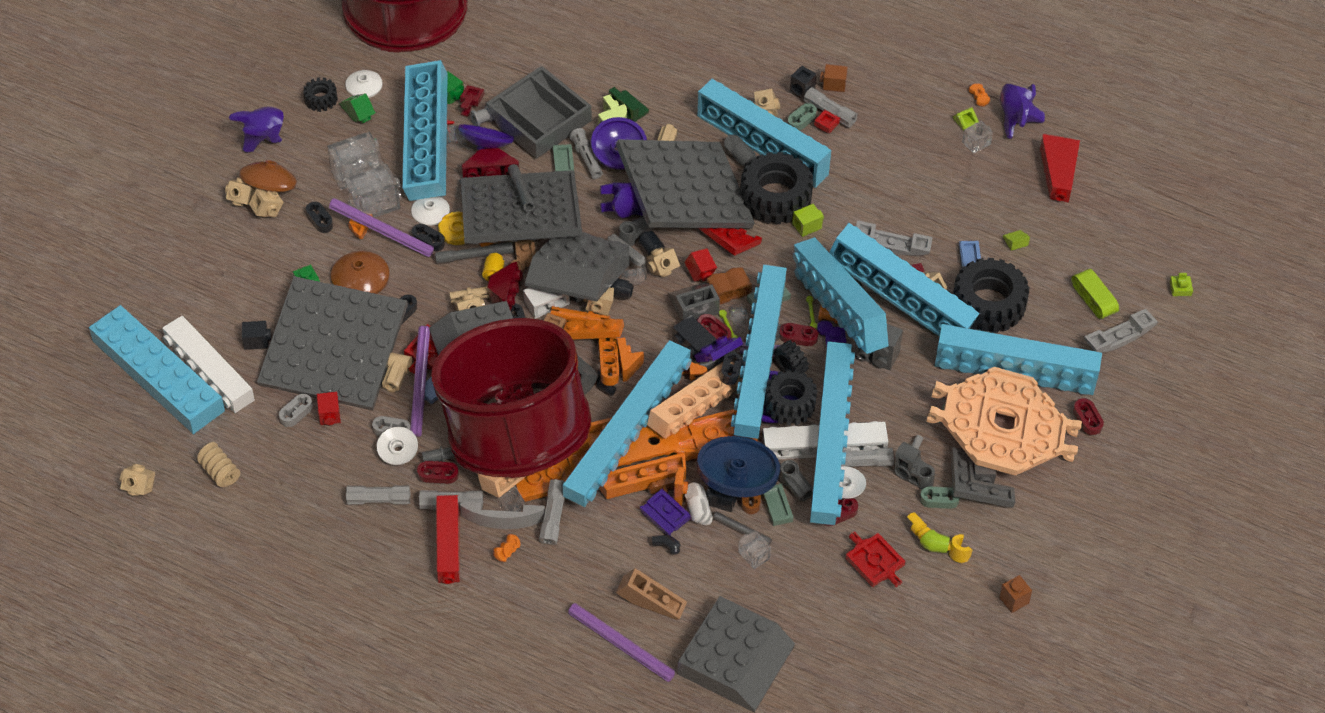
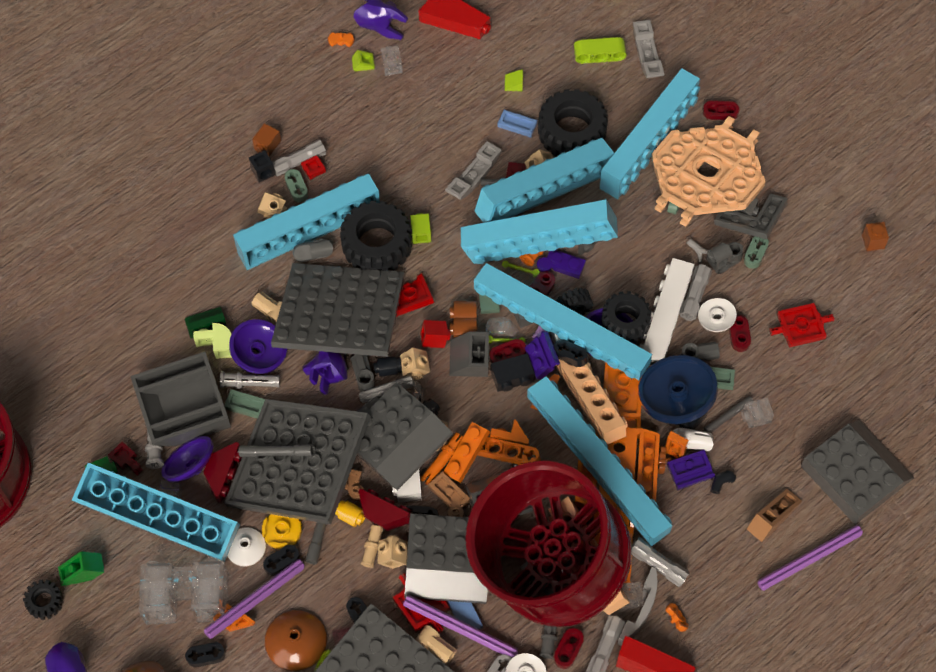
camera: 65 degrees left, 10 degrees up
(364, 82) = (52, 559): white dish -> none
(831, 434) = (674, 301): medium azure brick -> none
(939, 543) = (802, 272): yellow piece -> none

